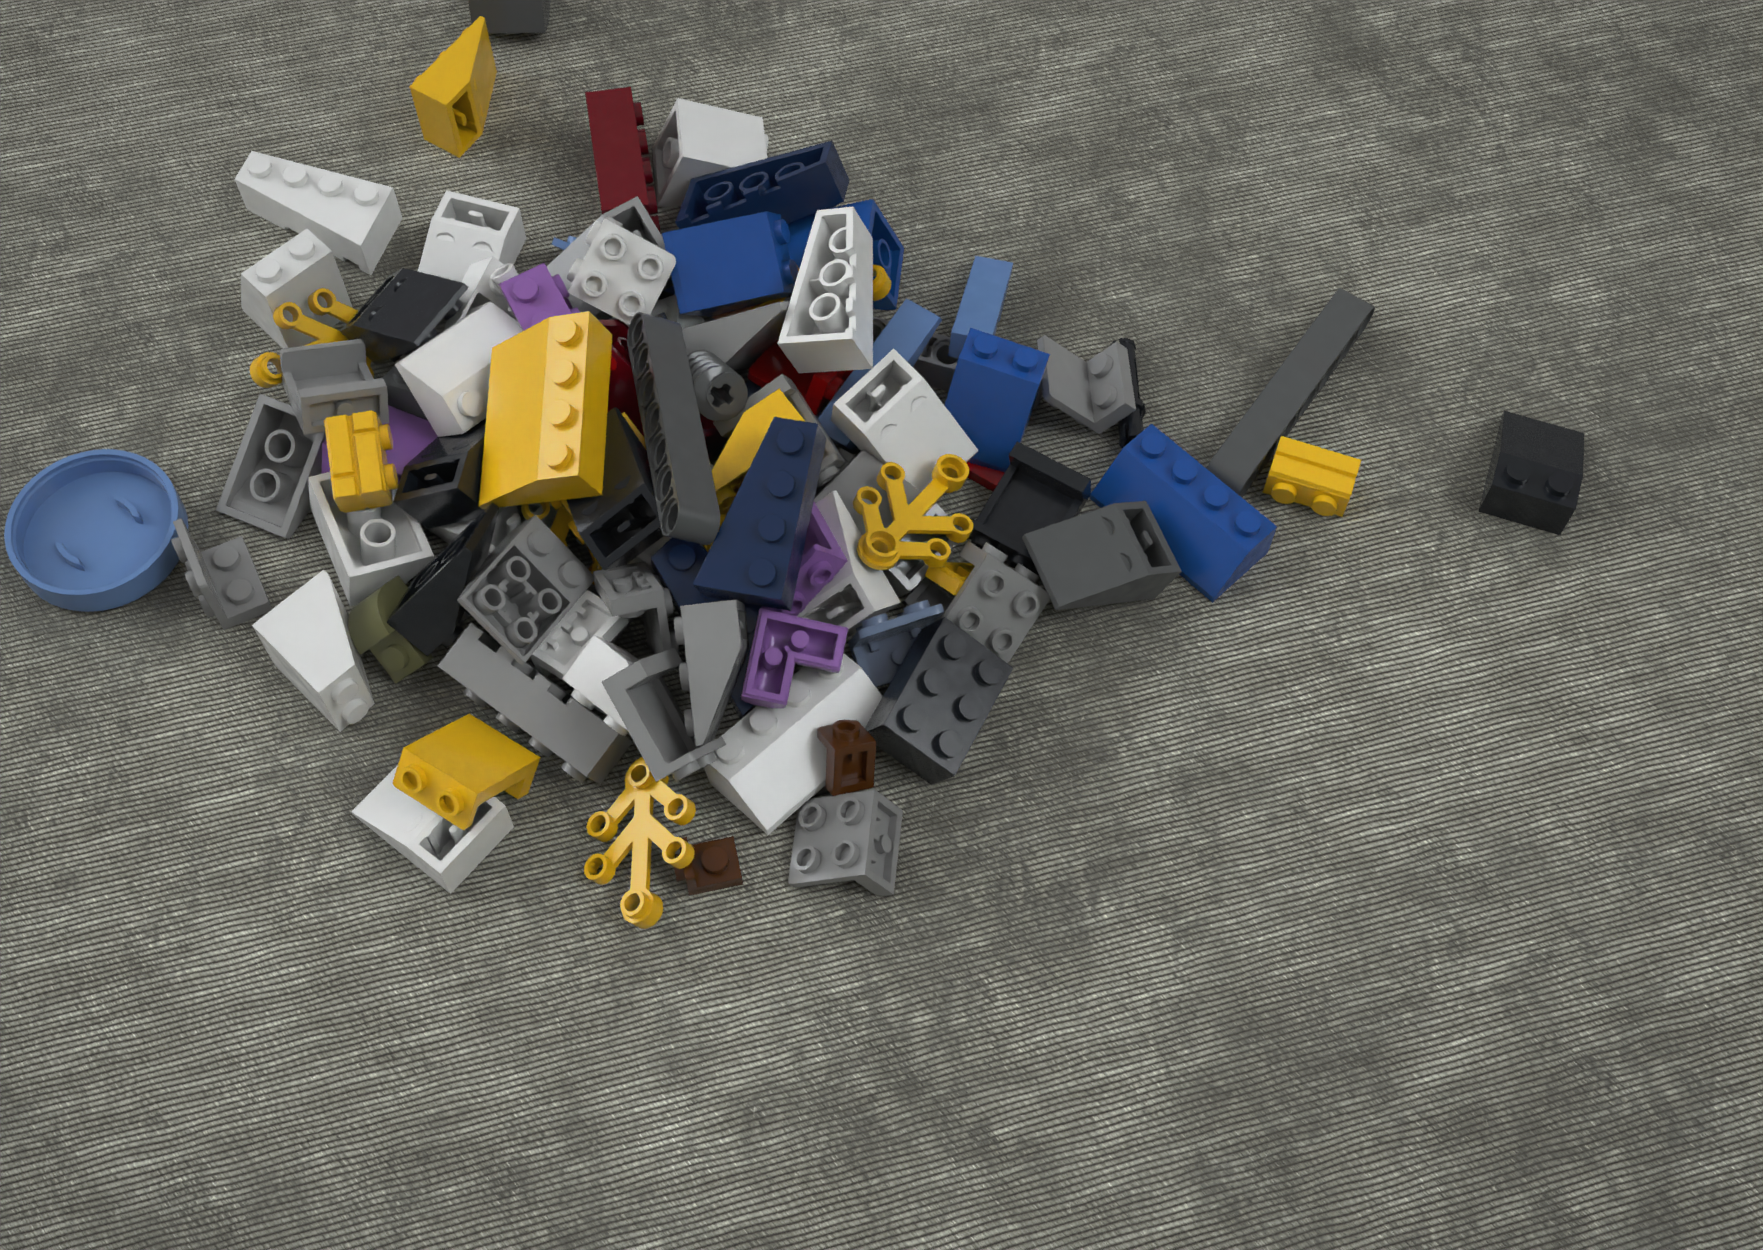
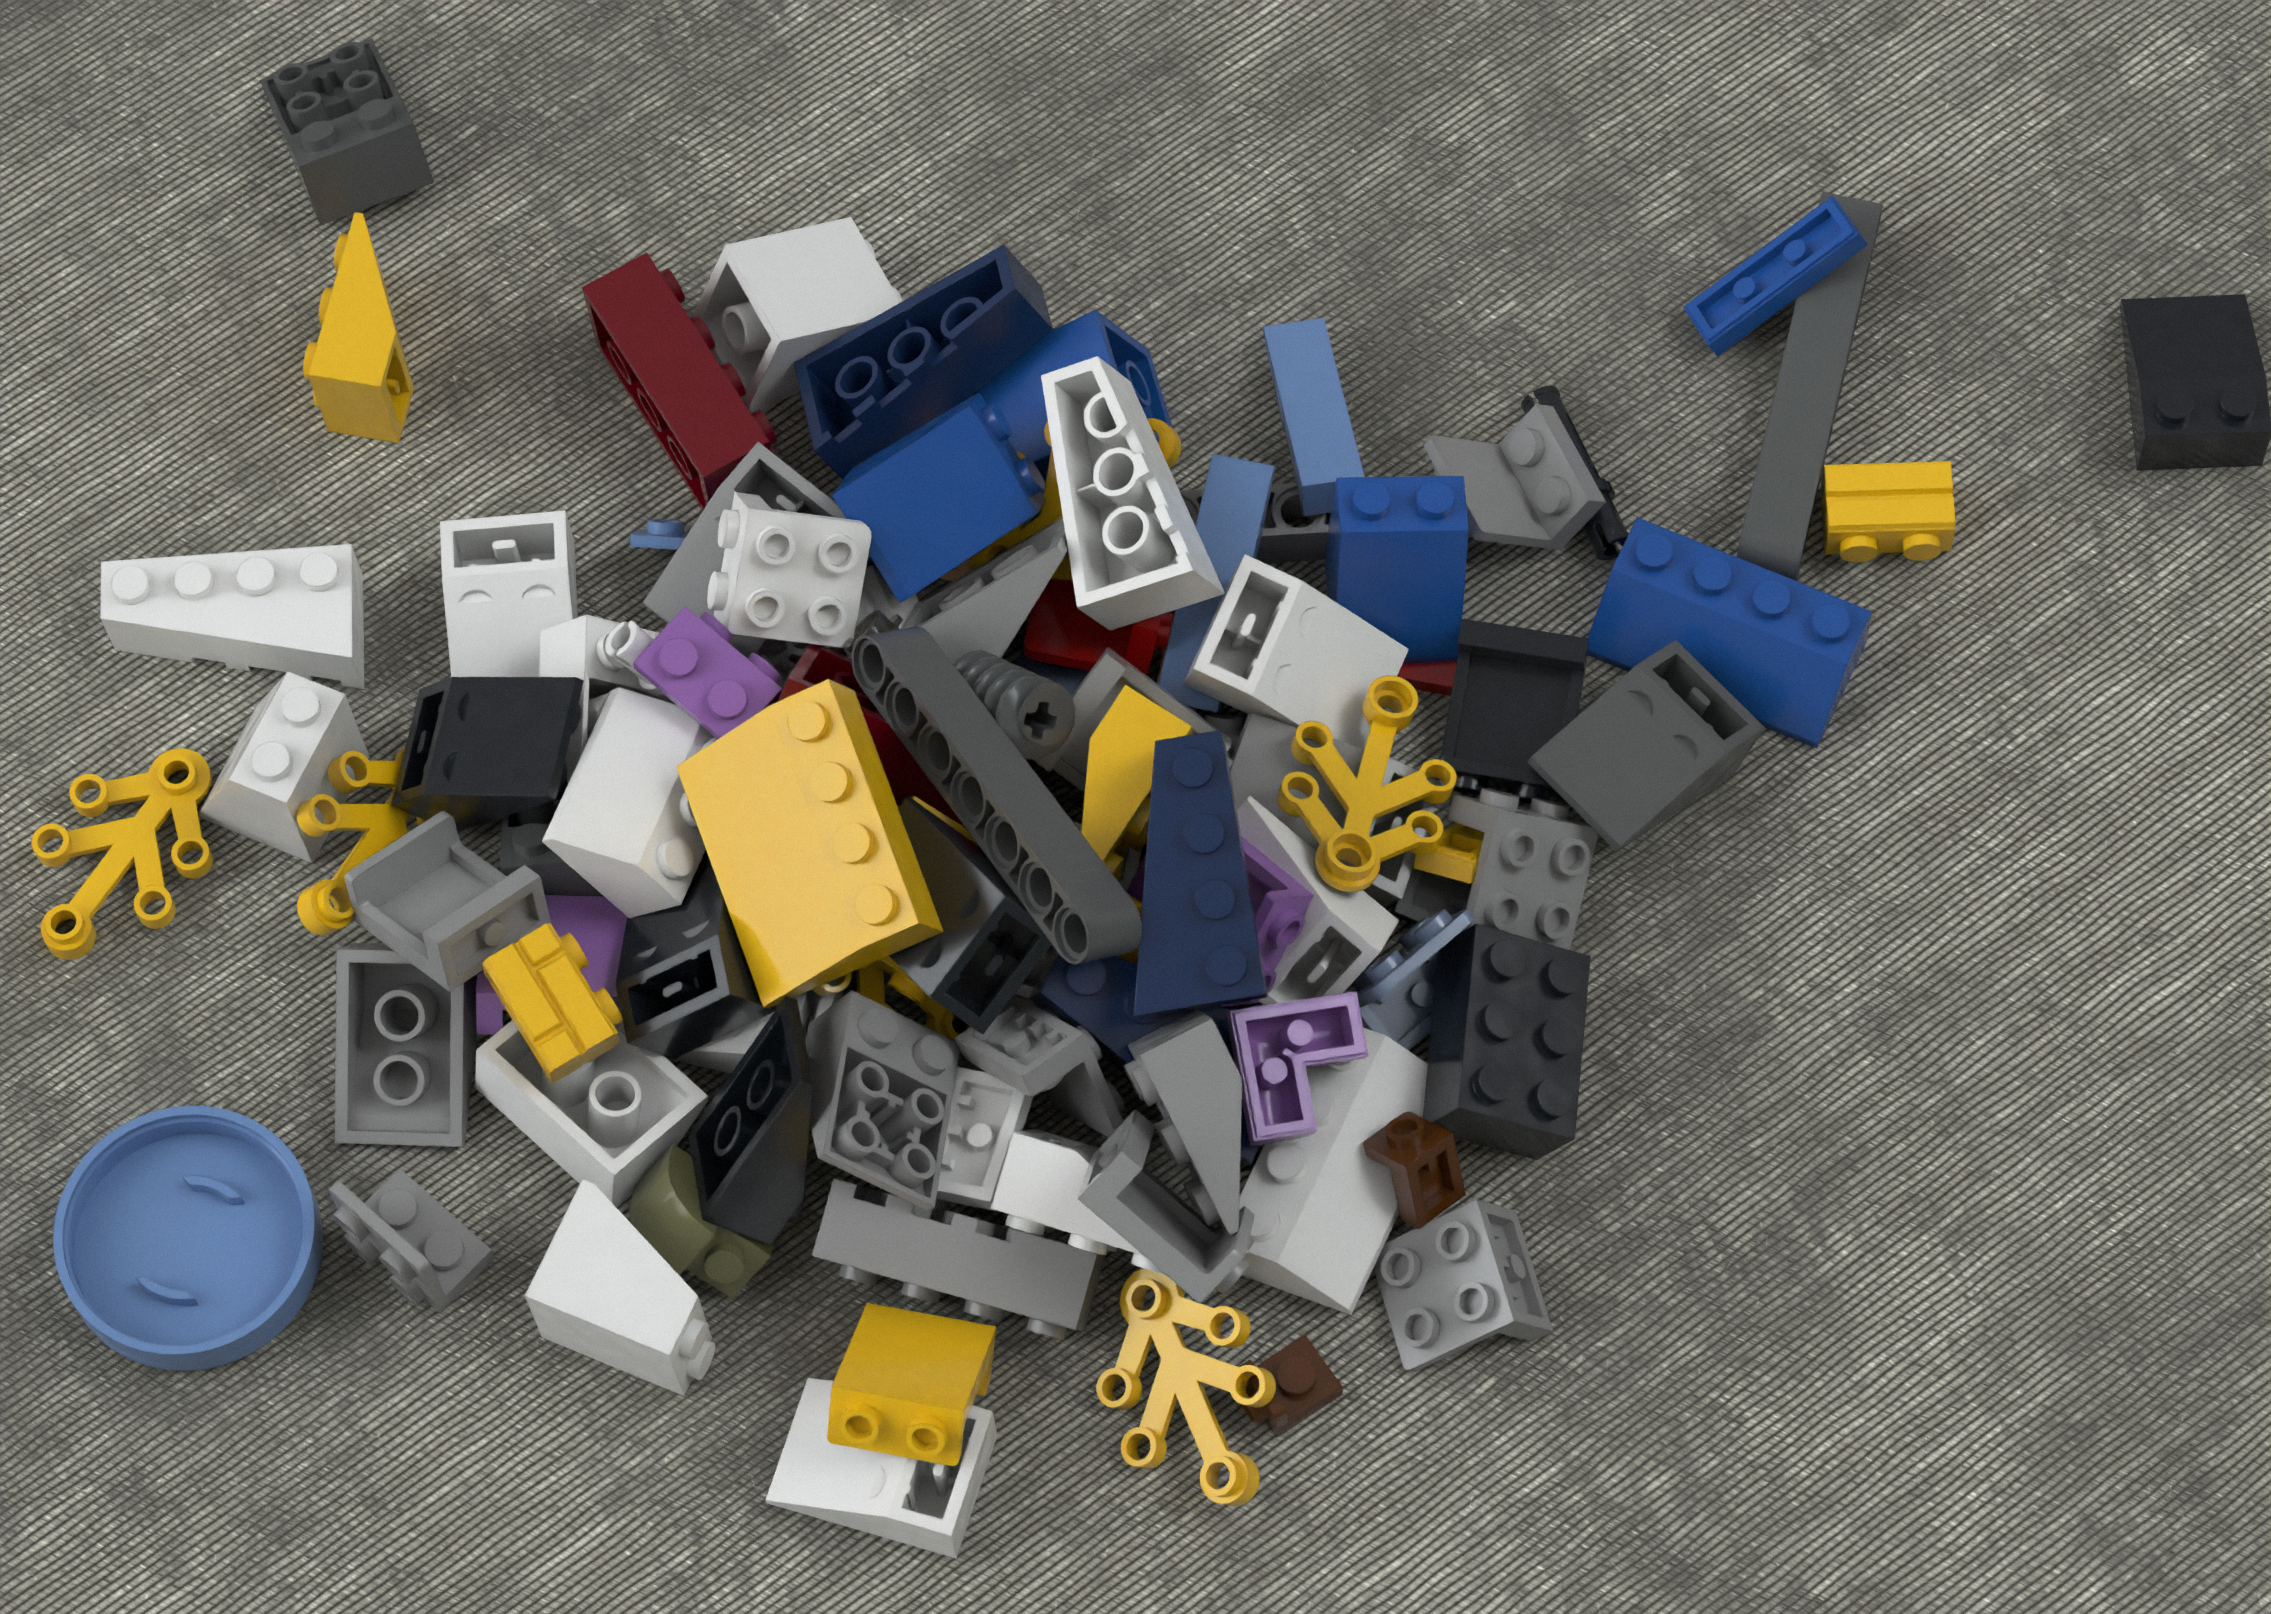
camera: 15 degrees left, 5 degrees up
(136, 342) = (128, 842): none -> yellow plant
(1293, 322) = (1775, 275): none -> blue tile

